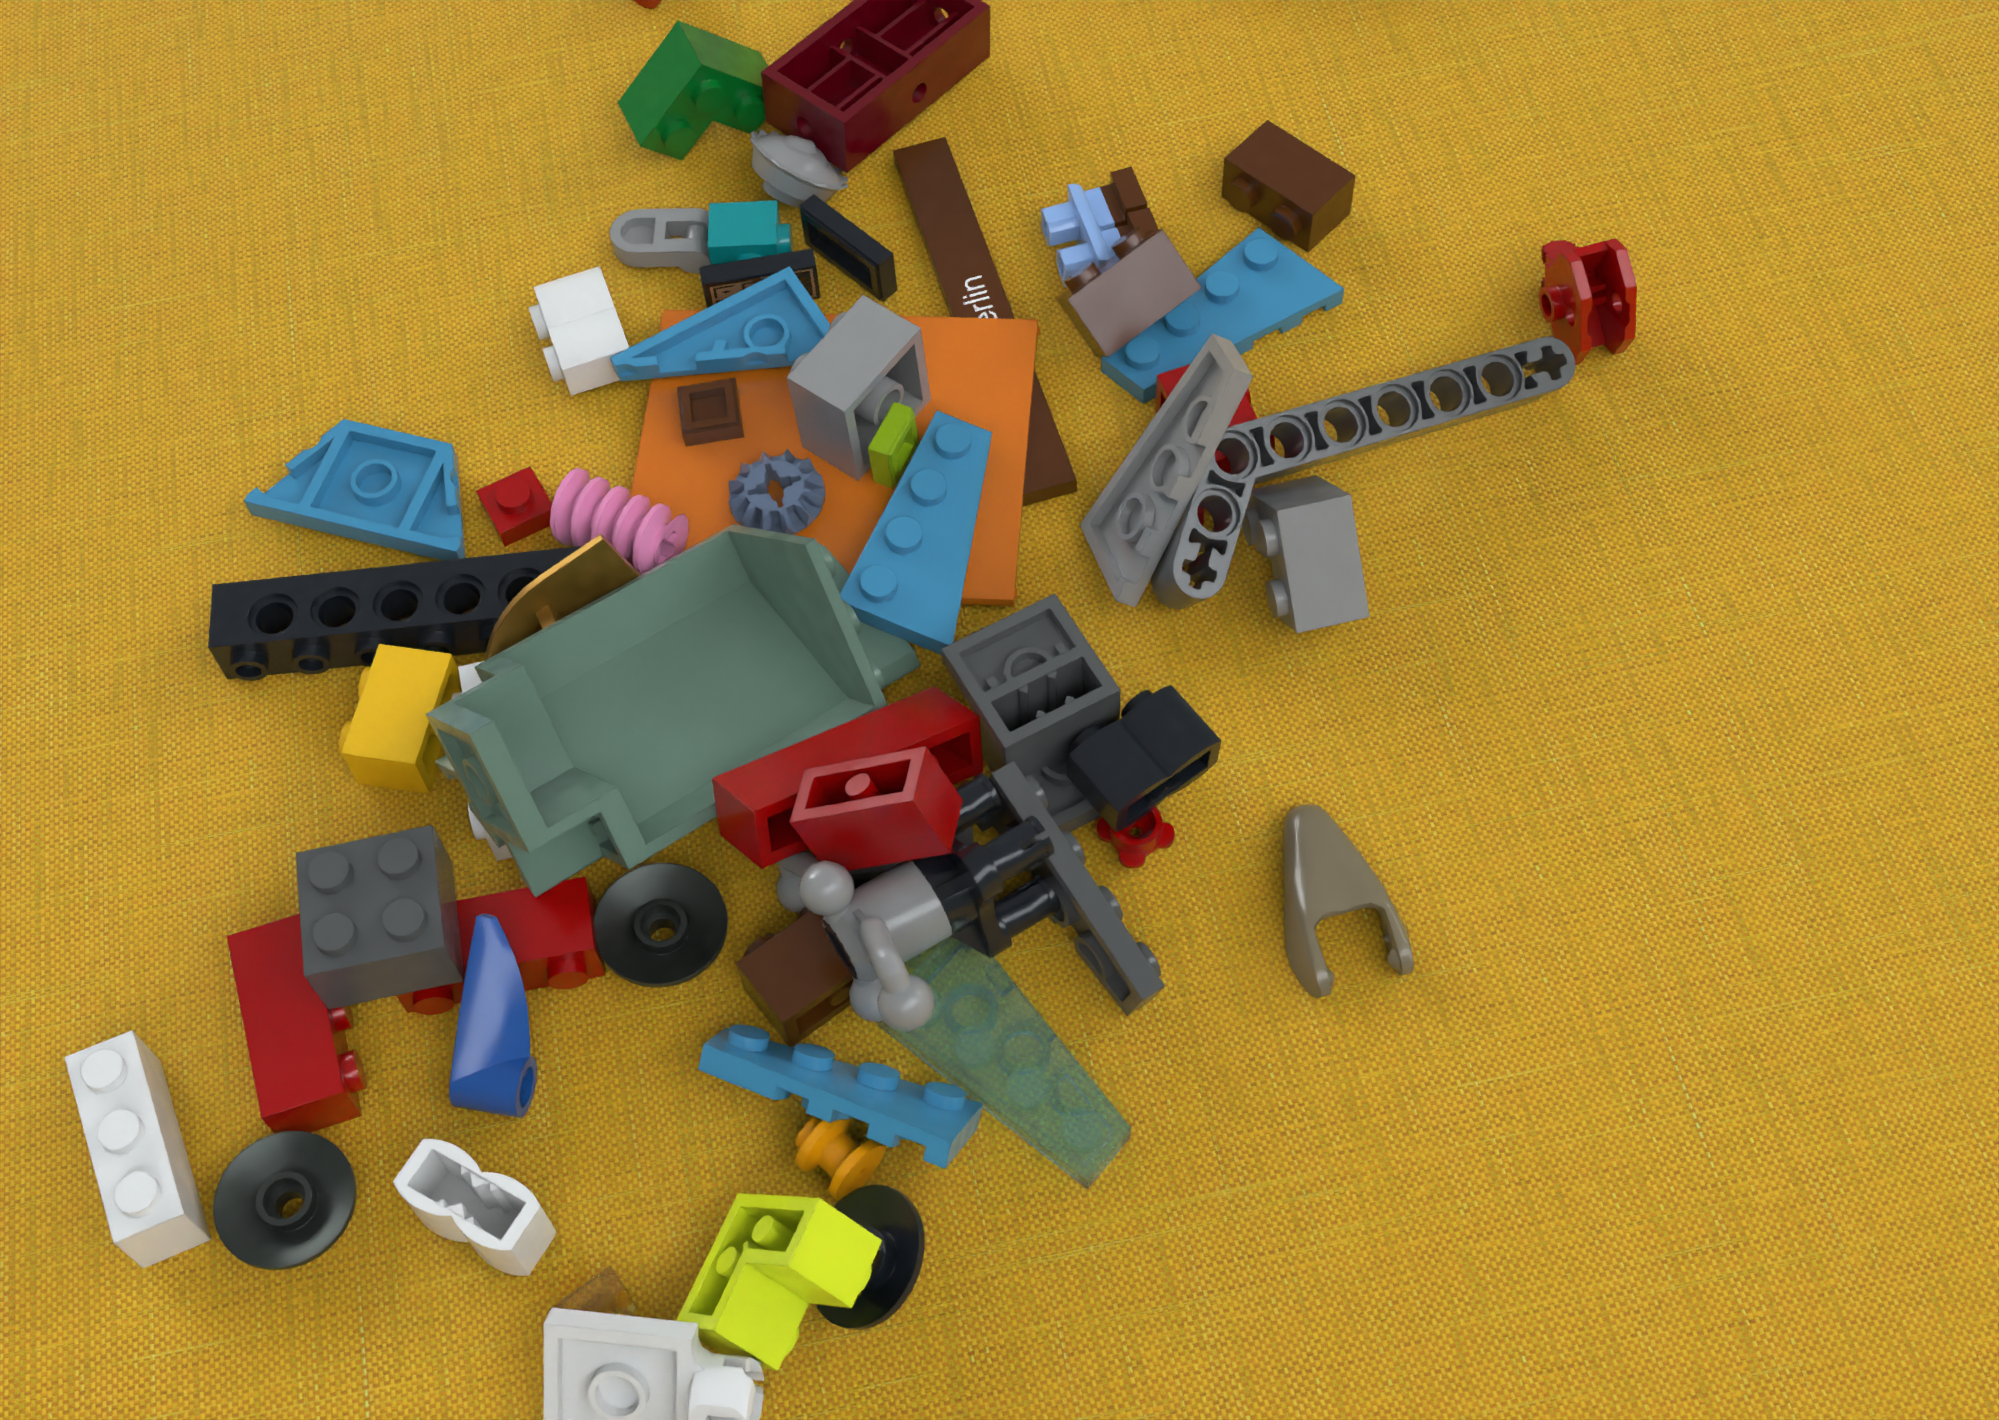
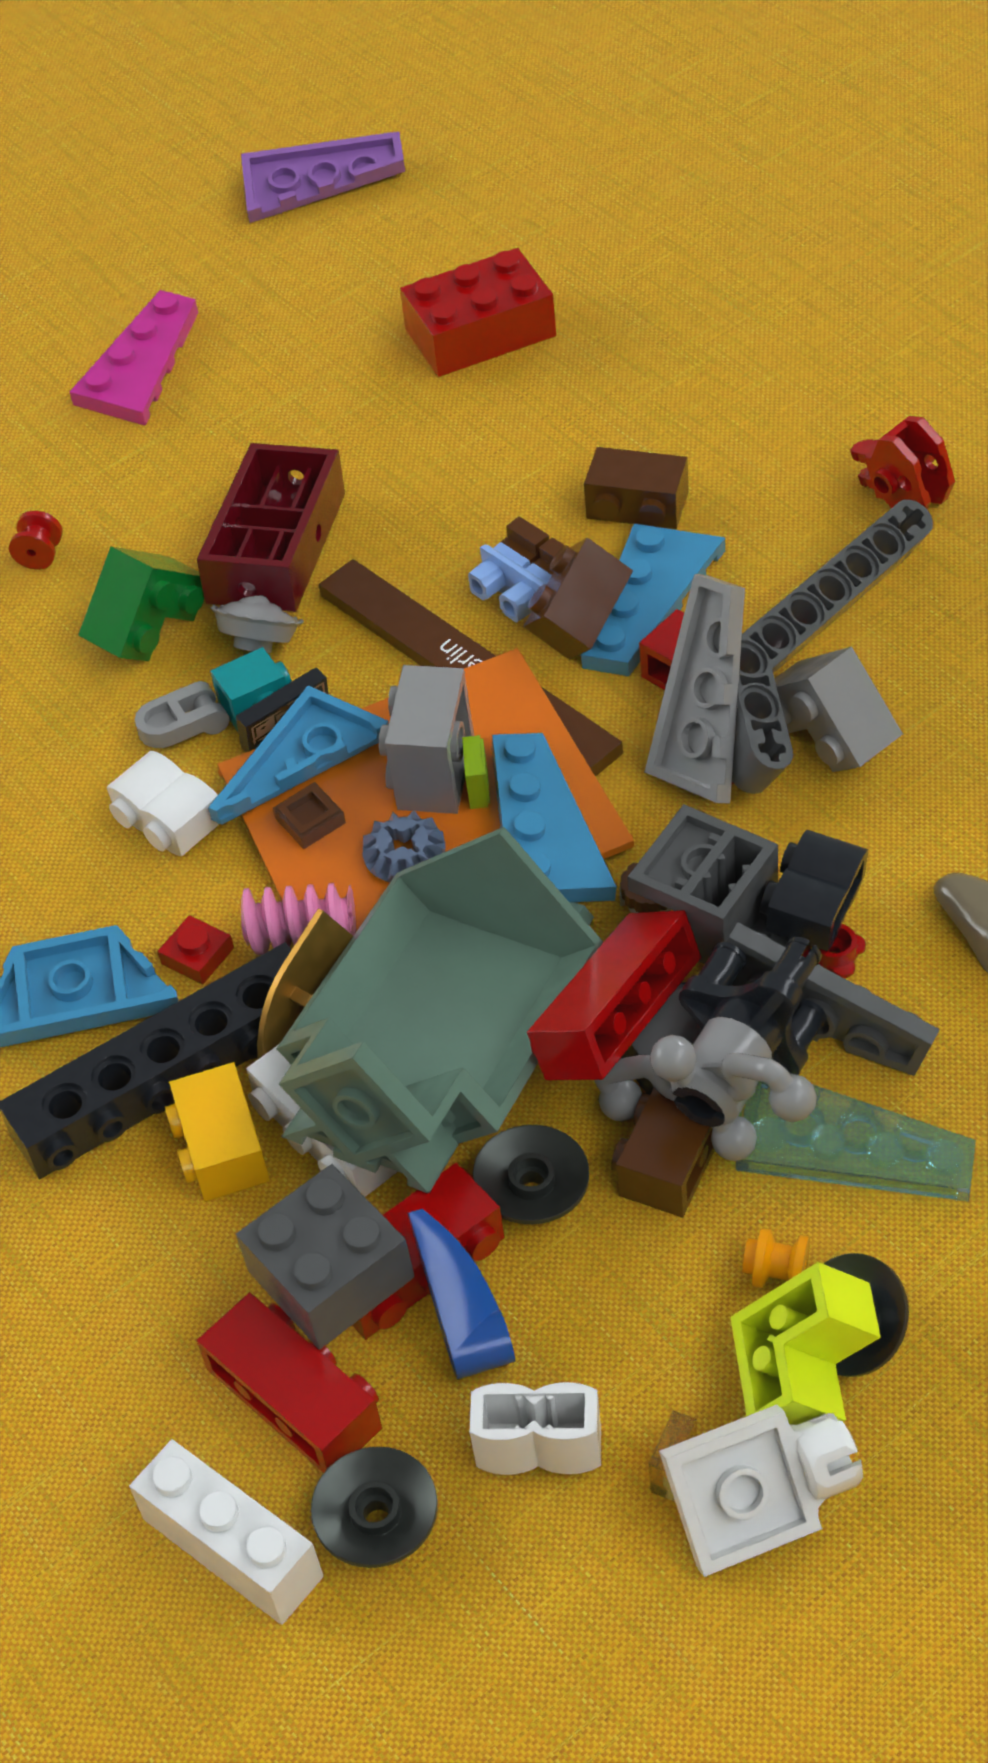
camera: 25 degrees left, 10 degrees down
(835, 1090) = (664, 1228): dark azure wing -> none
(848, 248) = (338, 659): black tile -> none
(877, 810) = (676, 985): red brick -> none

